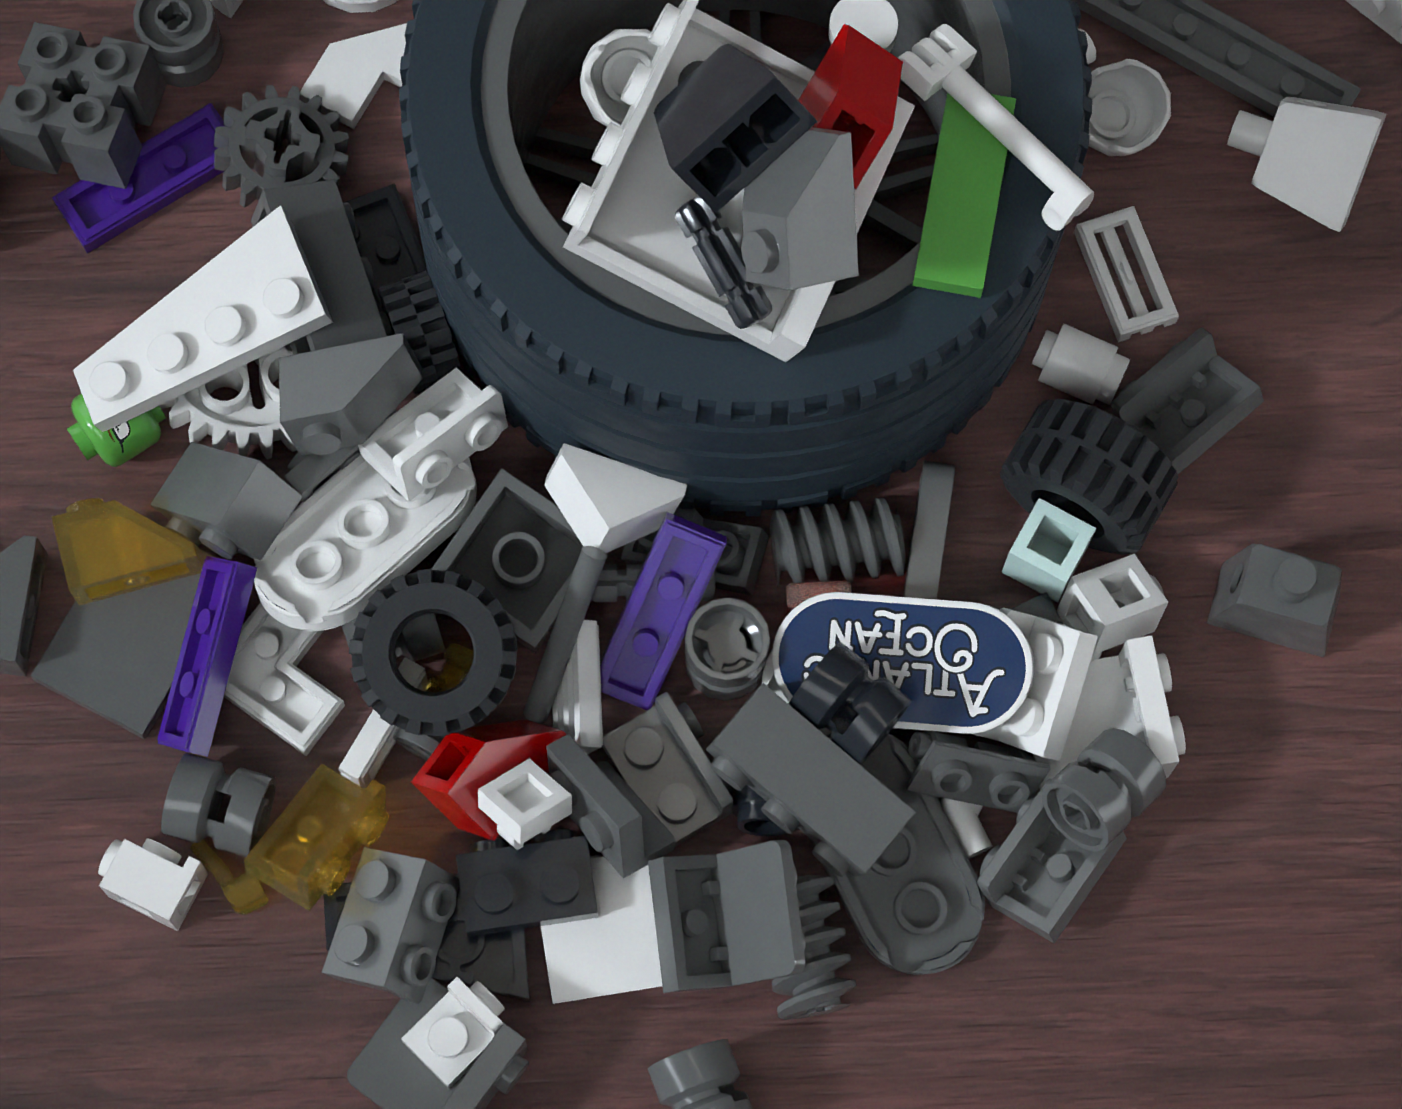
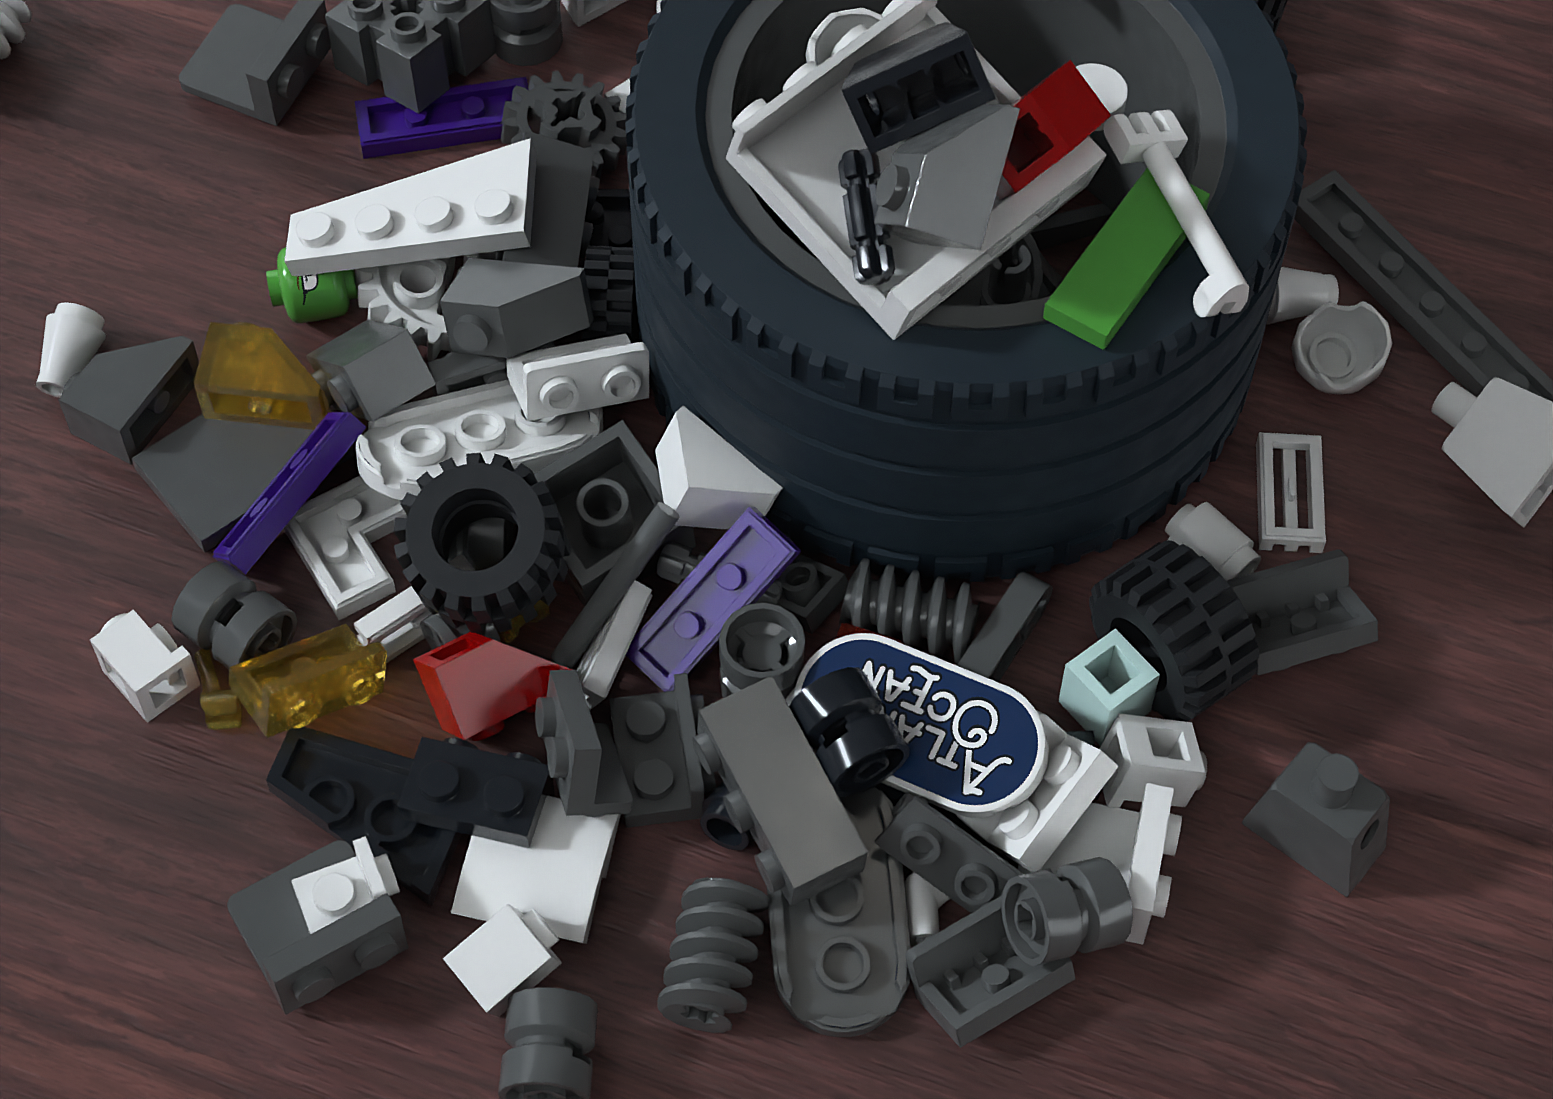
camera: 25 degrees right, 15 degrees down
(392, 924) = (335, 775): dark grey bracket -> none
(524, 803) = (503, 708): white tile -> none
(627, 1031) = (504, 957): none -> white brick
(727, 917) = (642, 887): dark grey bracket -> none

